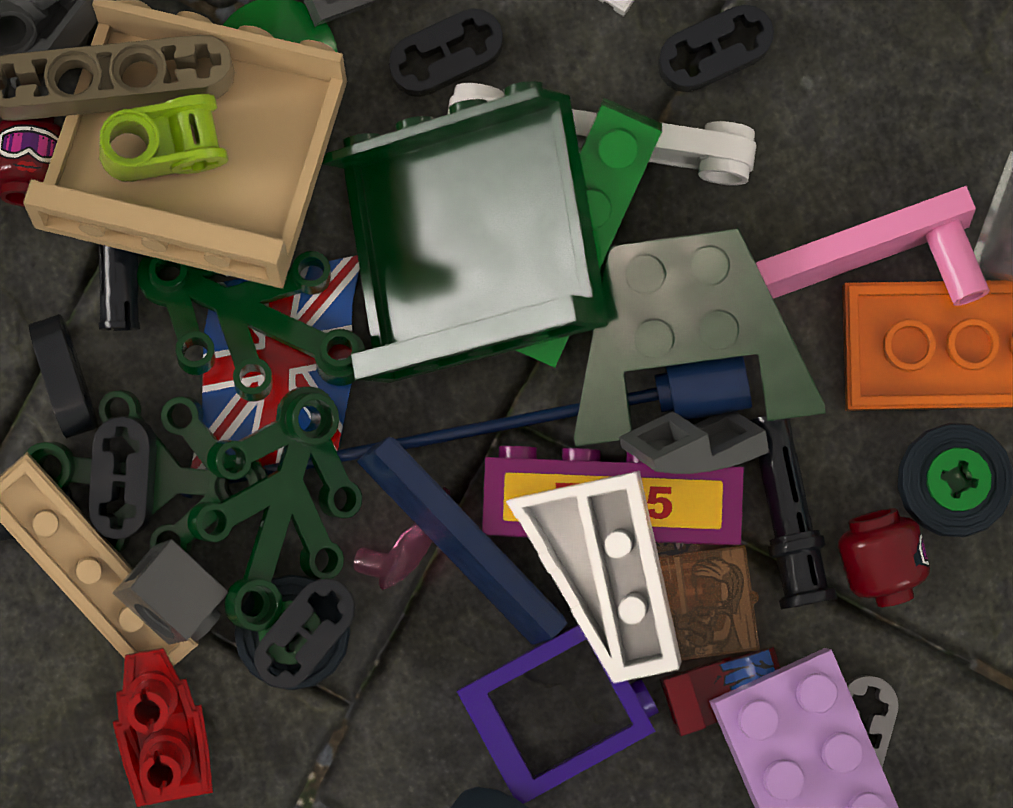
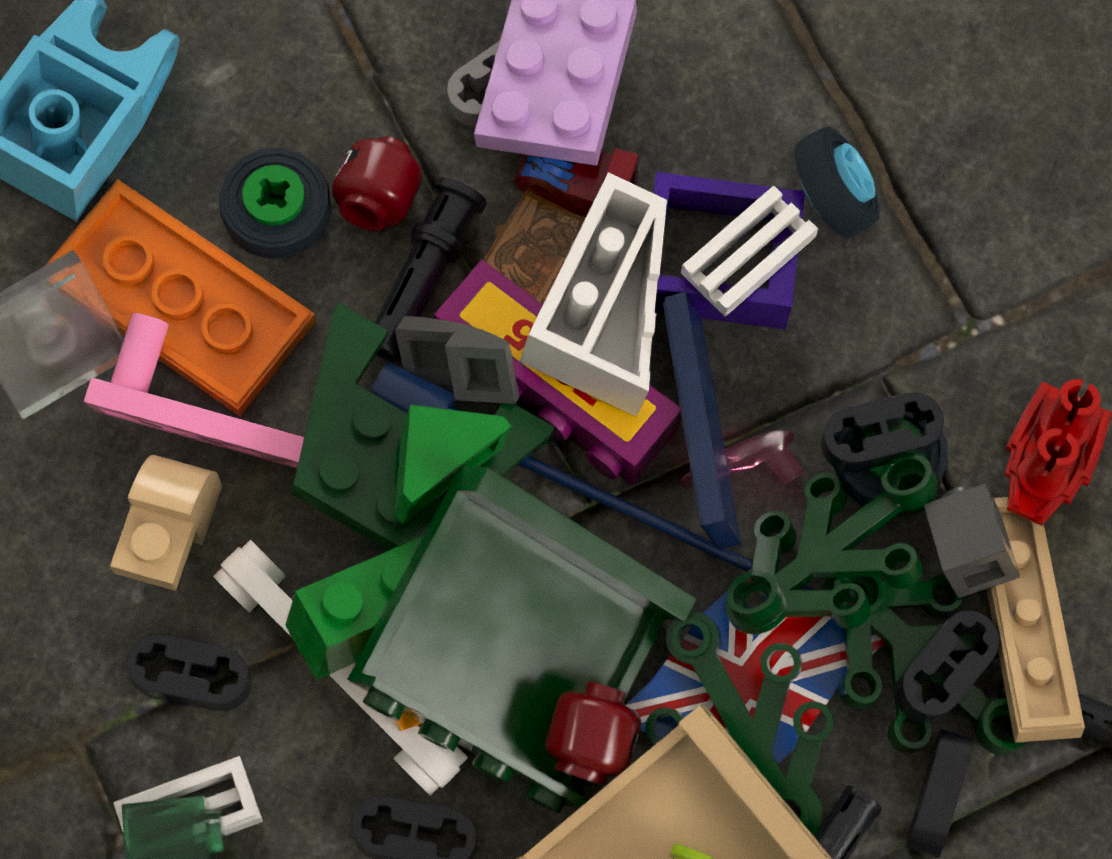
camera: 145 degrees left, 15 degrees down
(356, 209) = (592, 733): none -> dark red head
(513, 765) = (784, 217): none -> white tile
(638, 332) = (434, 449): none -> green slope
(828, 146) = (166, 515): none -> tan brick

